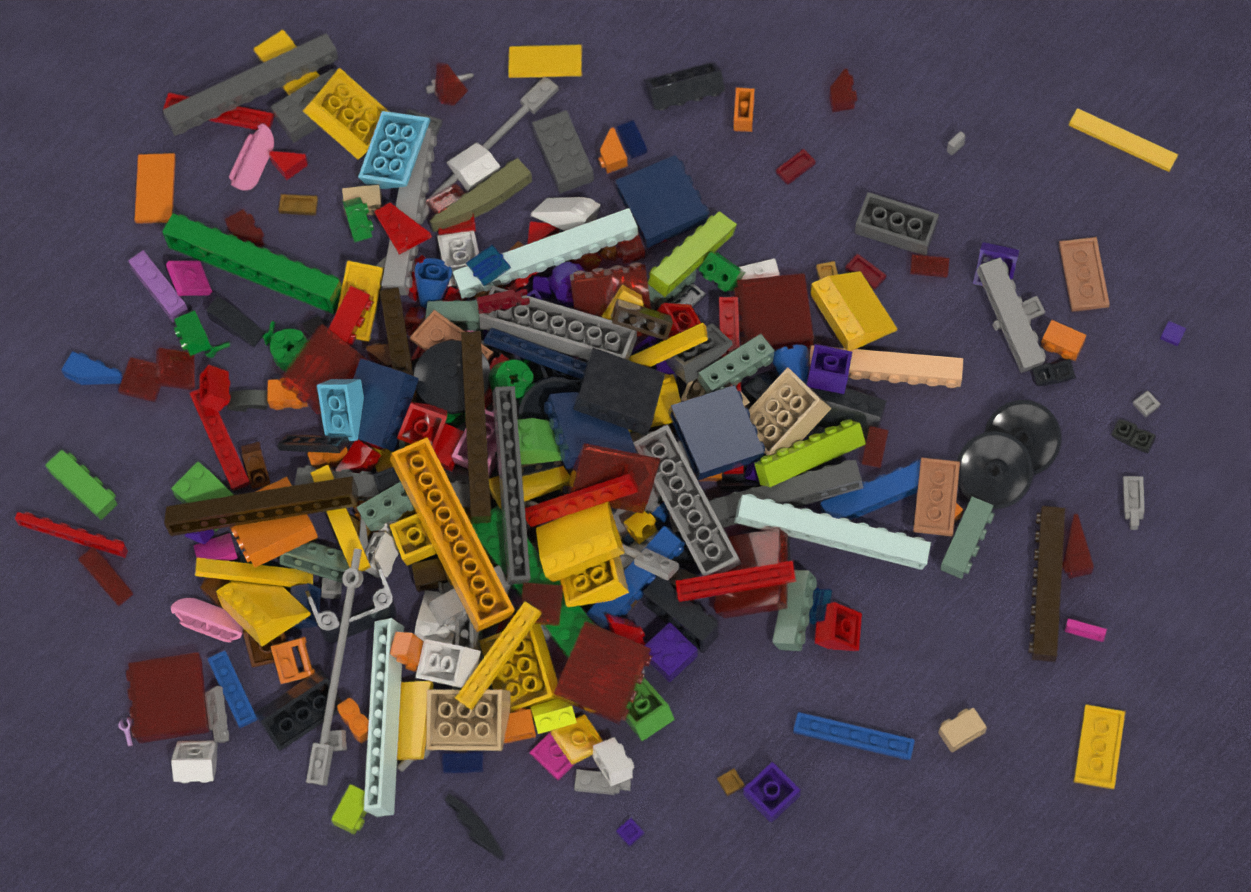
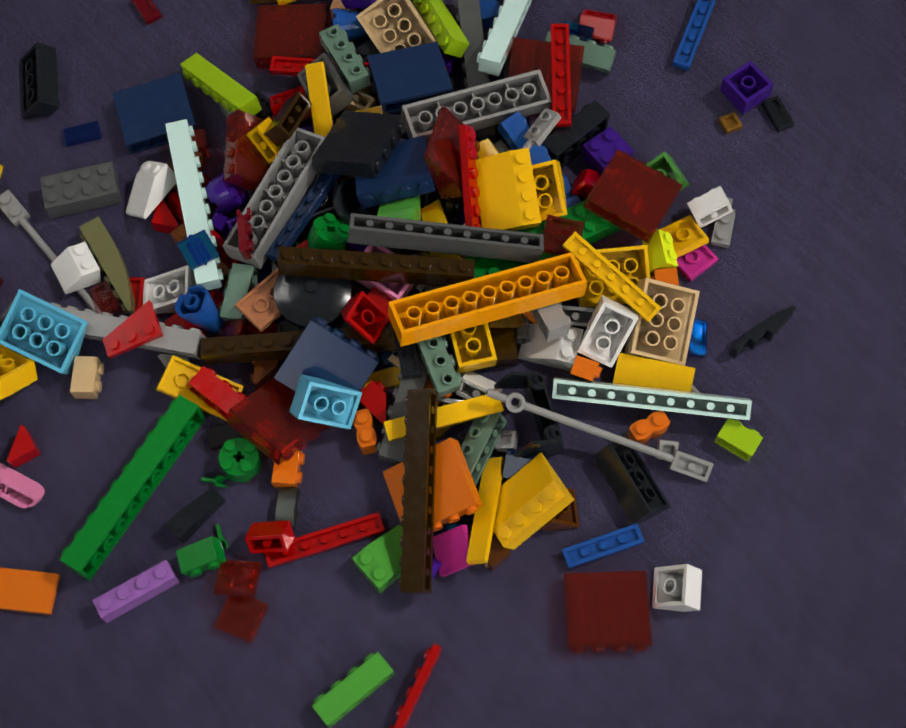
camera: 85 degrees left, 0 degrees up
(89, 372) = (220, 676): blue slope -> none
(105, 576) = (463, 670): clear red slope -> none
(126, 730) = (634, 658): lavender hand -> none
(188, 278) = (134, 556): dark pink tile -> none
(207, 619) = (525, 564): bright pink brick -> none
(216, 714) = (629, 561): light grey hinge -> none
(243, 228) = (86, 497): clear red slope -> none
(255, 465) = (360, 504): reddish brown slope -> none
(286, 661) = (582, 488): orange plate -> none
(298, 204) = (73, 443): pearl gold tile -> none
(313, 443) = (353, 440): black tile -> none
(357, 219) = (109, 378): green brick -> none
(611, 153) = (92, 148): orange slope -> none
(630, 832) = (771, 206): dark purple tile -> none
(721, 271) = (243, 68): green brick -> none
(744, 109) = (79, 35): orange brick -> none
(749, 833) = (777, 114): none -> black tile
(761, 269) = (244, 47): white plate -> none

